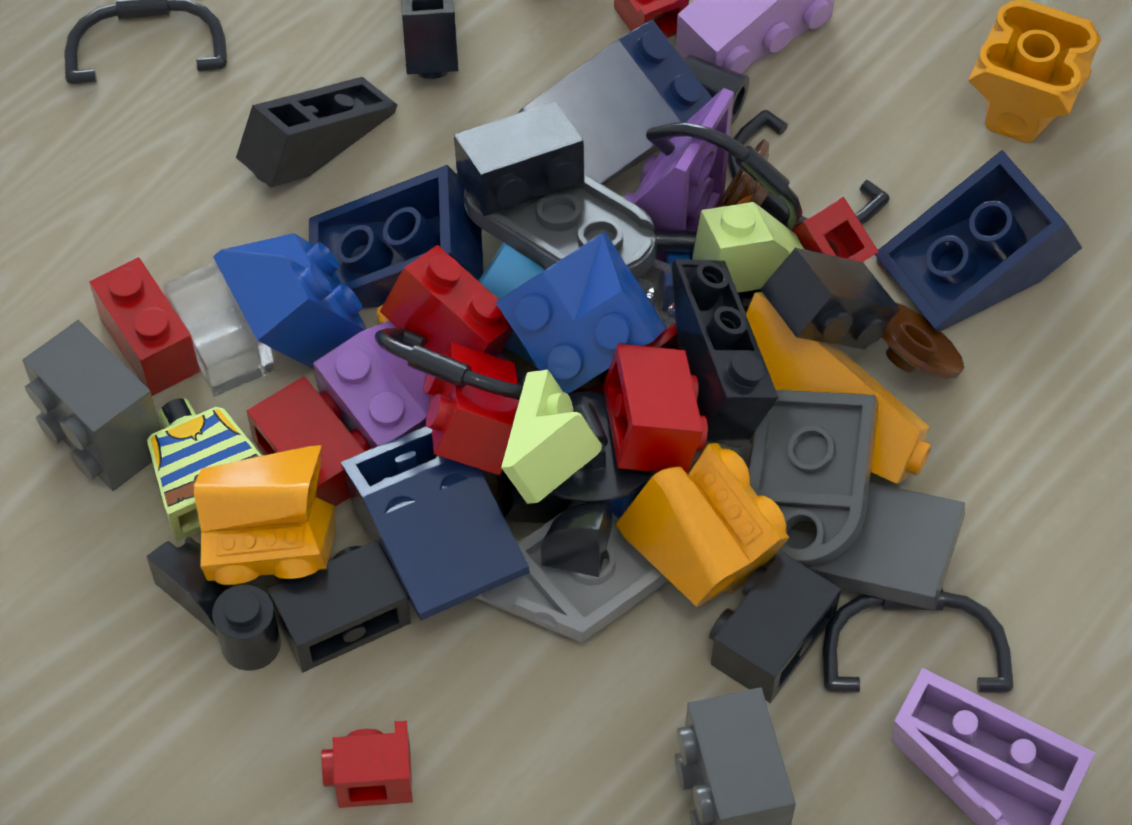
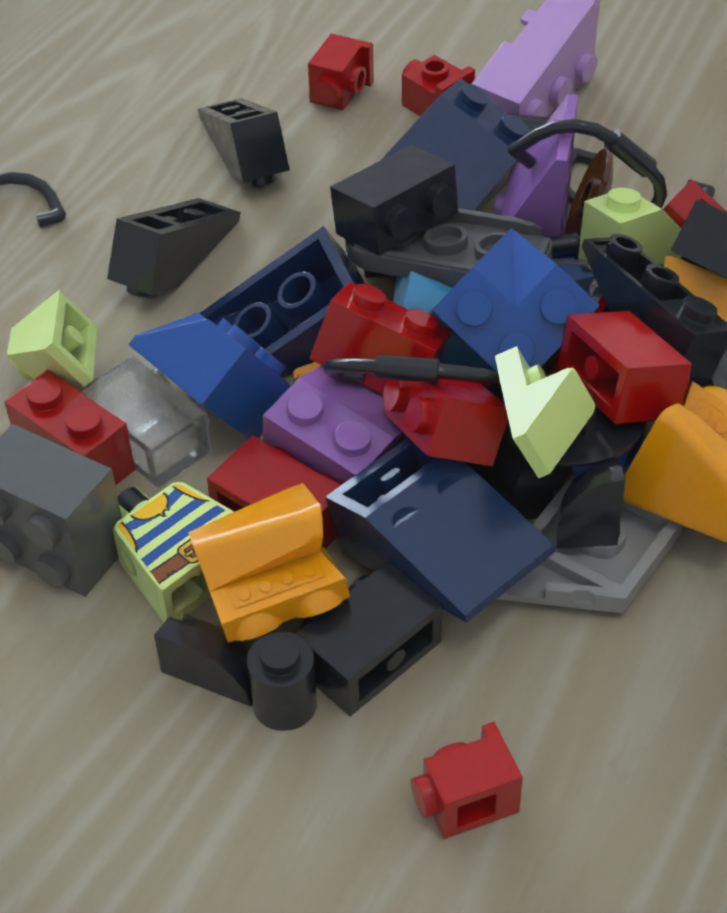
camera: 15 degrees left, 10 degrees down
(159, 225) = (56, 340): none -> yellowish green slope

